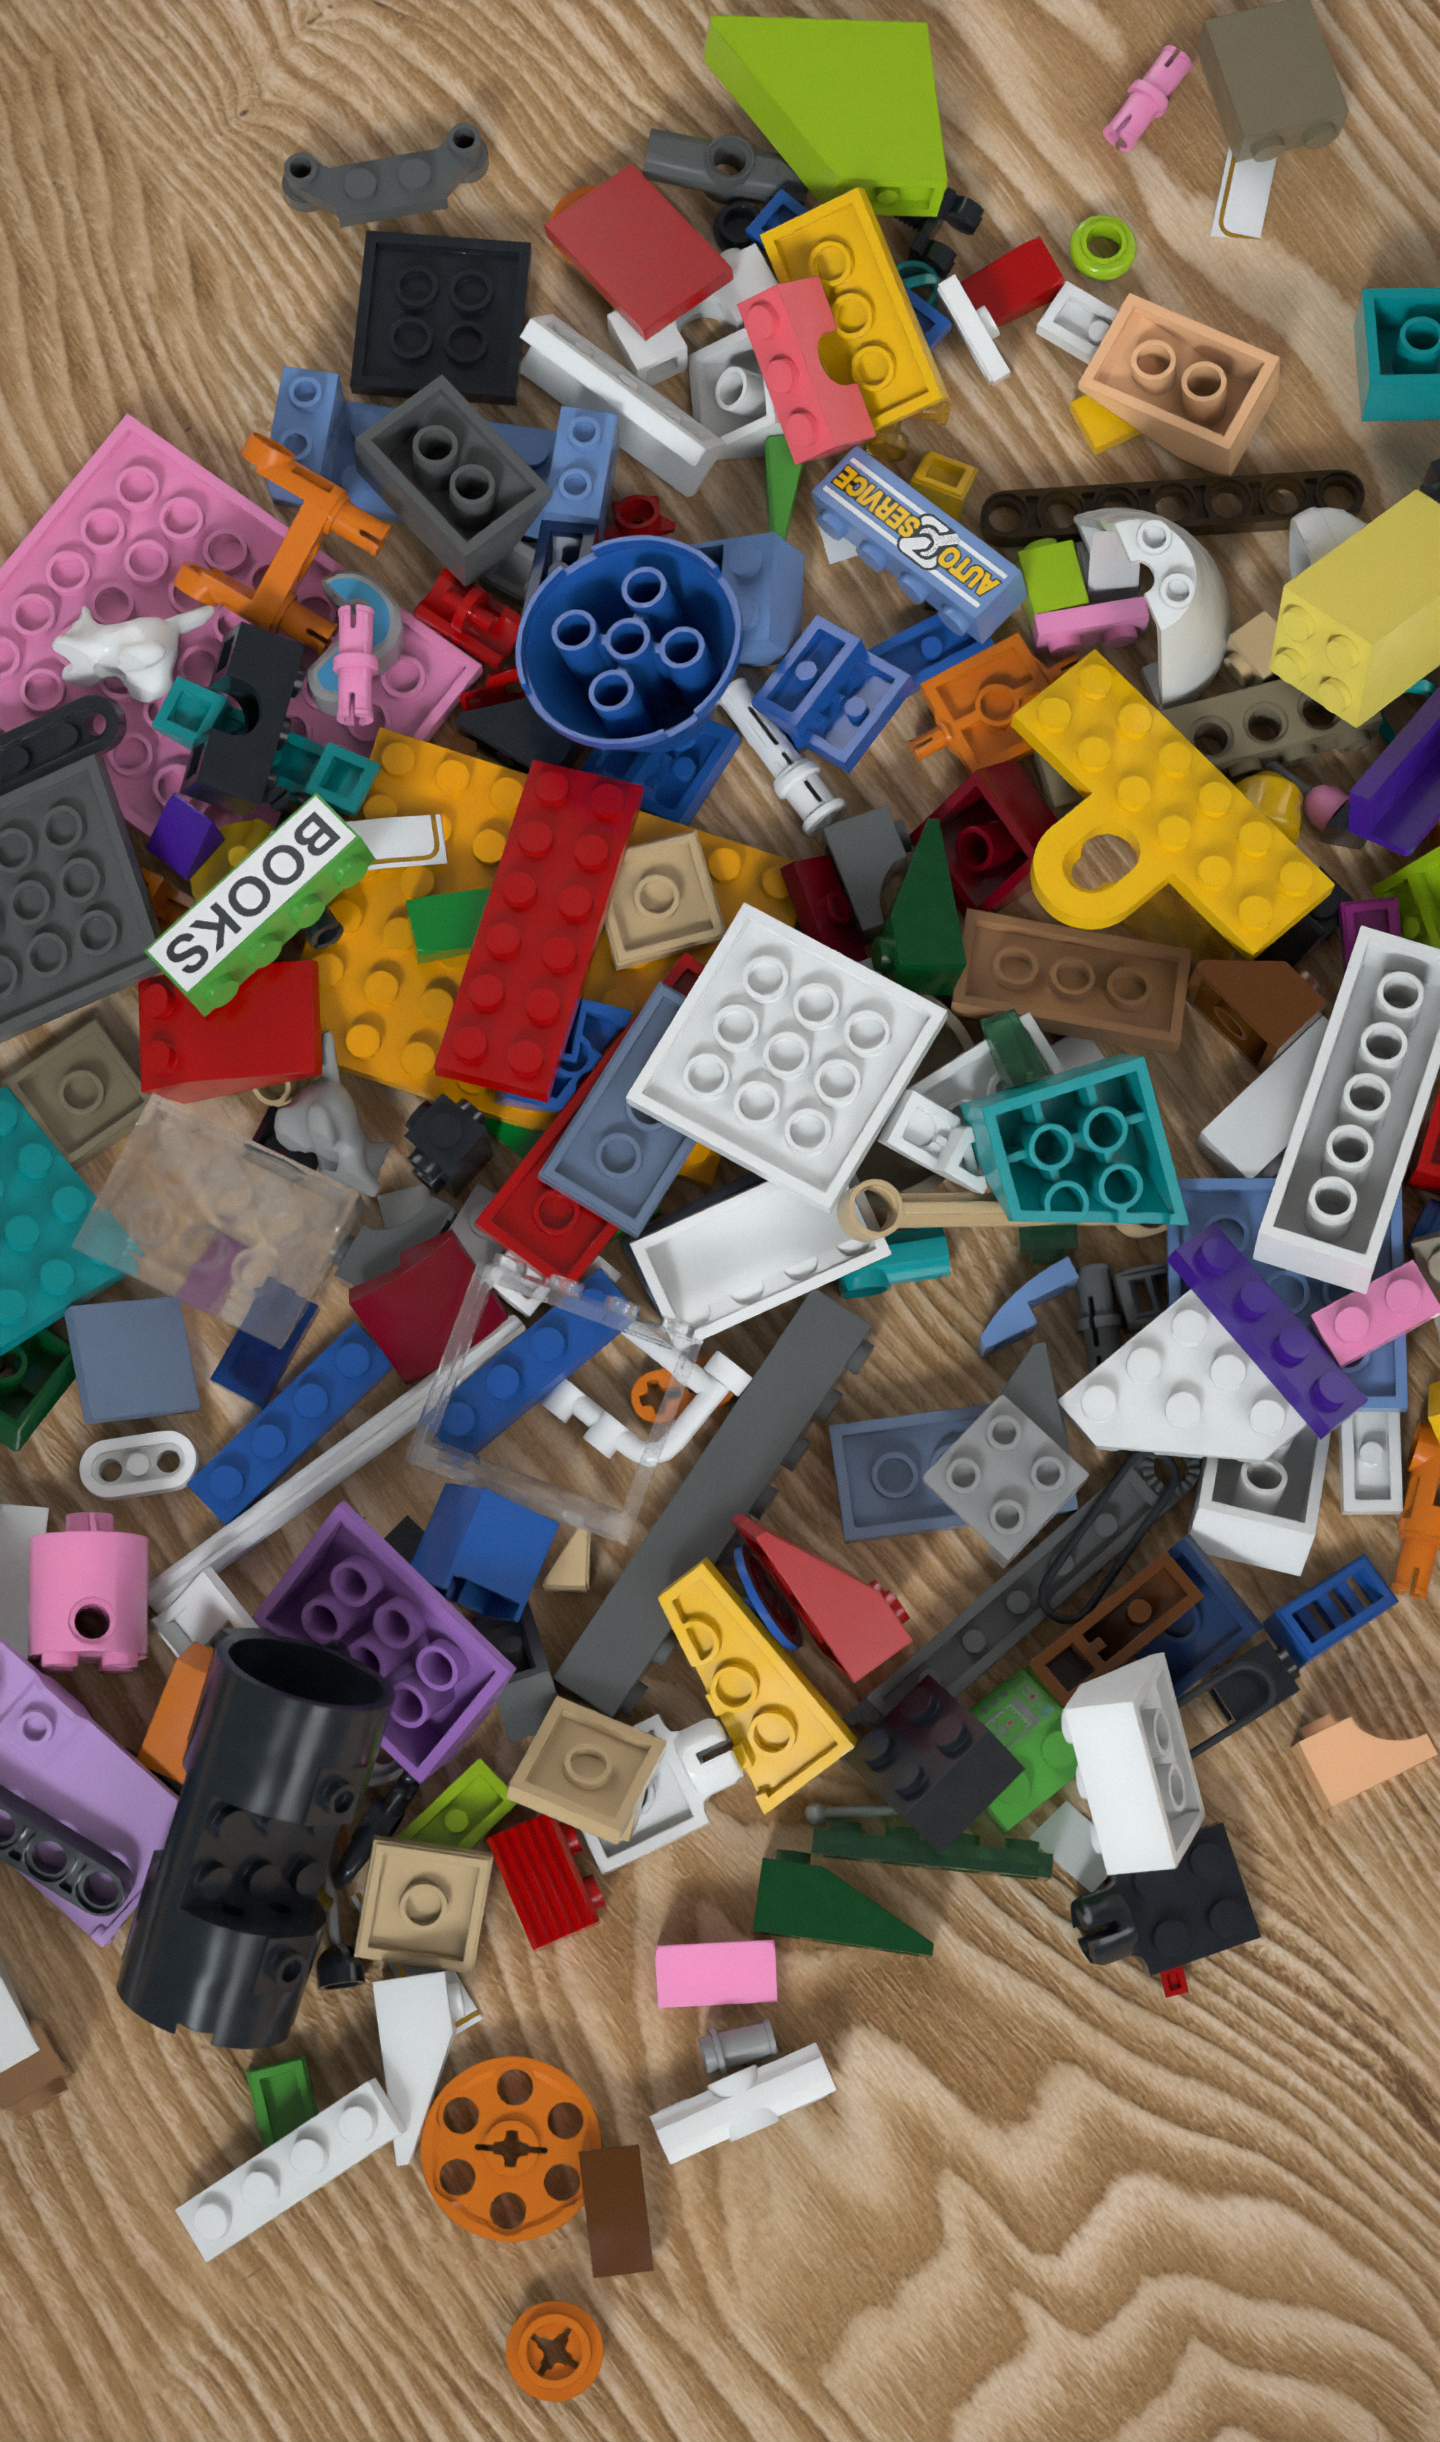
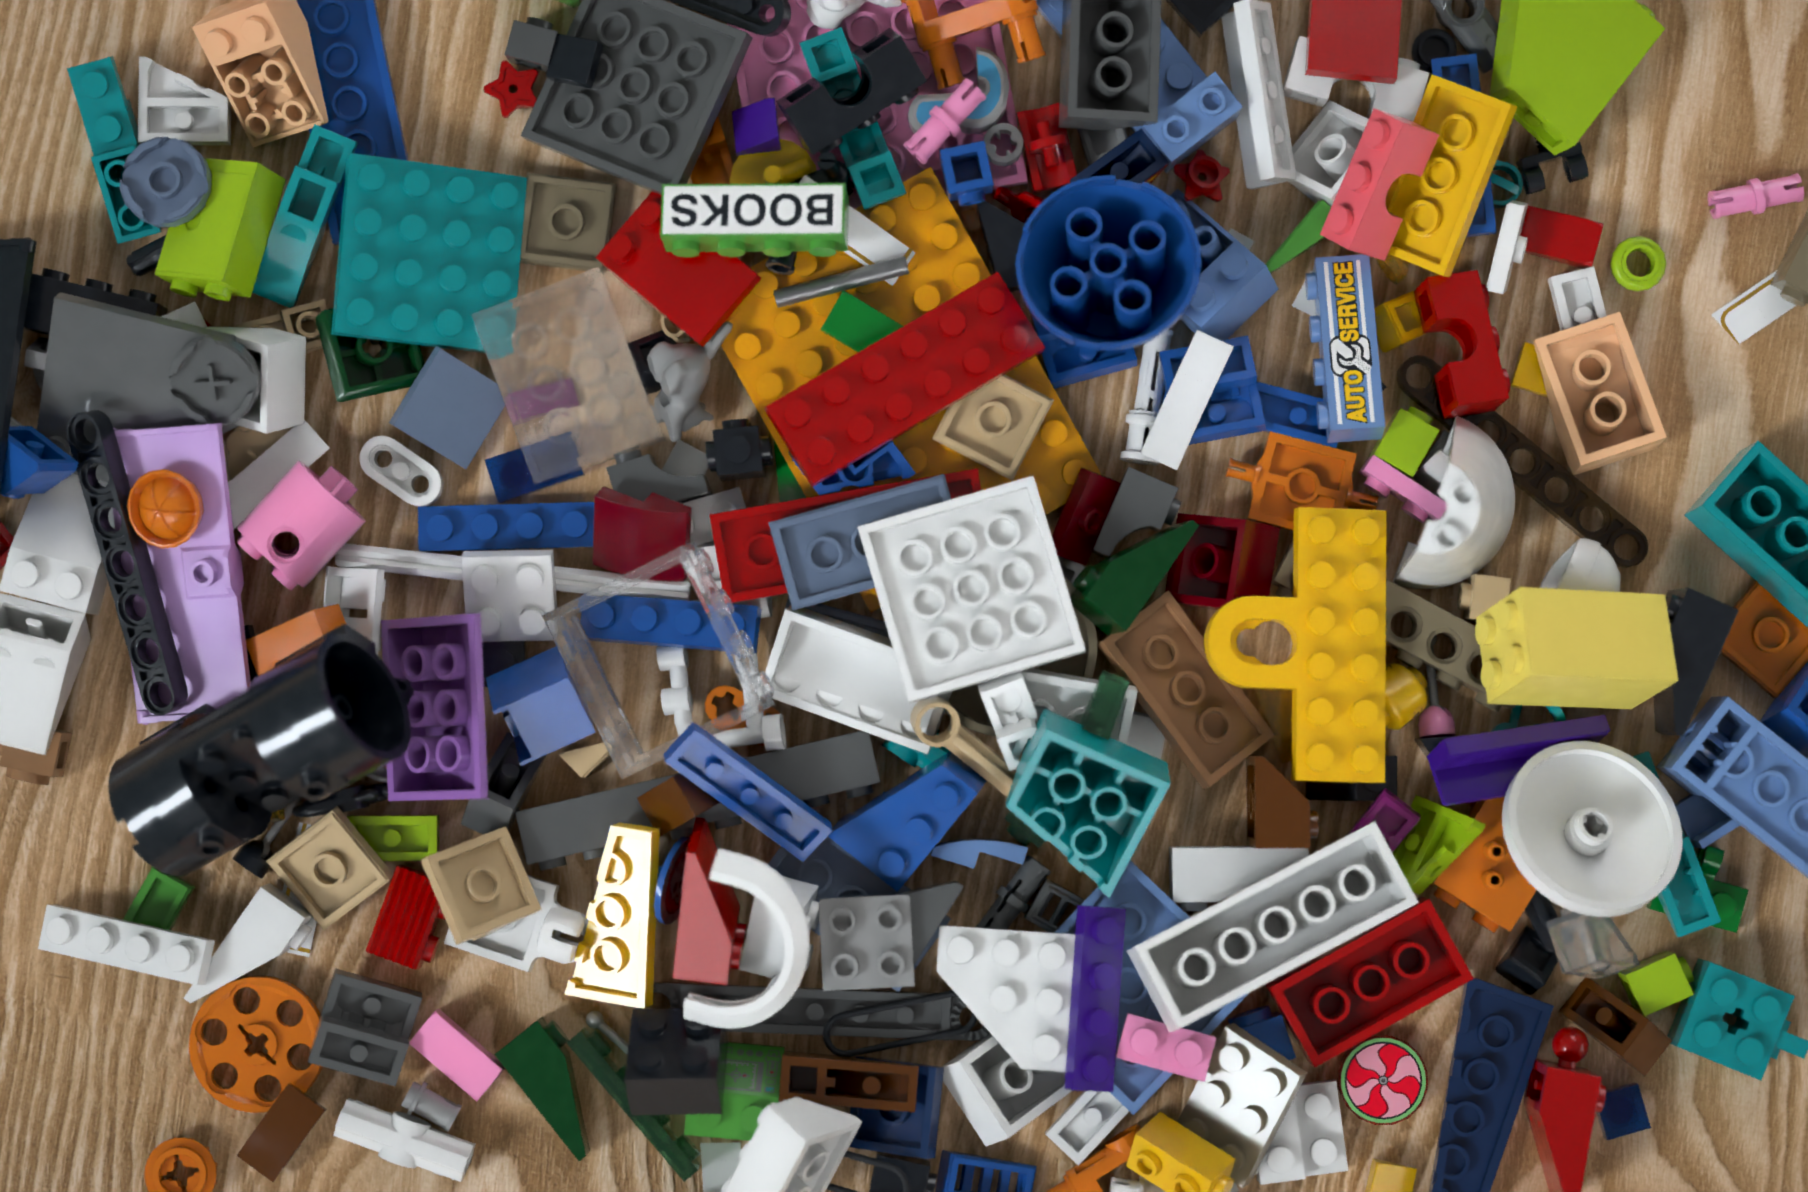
camera: 45 degrees right, 10 degrees up
(358, 1465) = (510, 592): none -> white plate
(395, 899) = (841, 281): none -> flat silver bar
(419, 698) = (966, 173): none -> blue brick
(436, 635) = (1016, 139): none -> light grey bush
(601, 2029) = (365, 1027): none -> dark grey slope
(701, 1504) = (675, 803): none -> reddish brown slope
(757, 1441) = (747, 791): none -> blue plate
(817, 717) = (1186, 399): none -> white sticker
(921, 1560) = (774, 941): none -> white piece
(934, 1333) = (909, 820): none -> blue wedge
(986, 423) = (1461, 309): none -> red arch

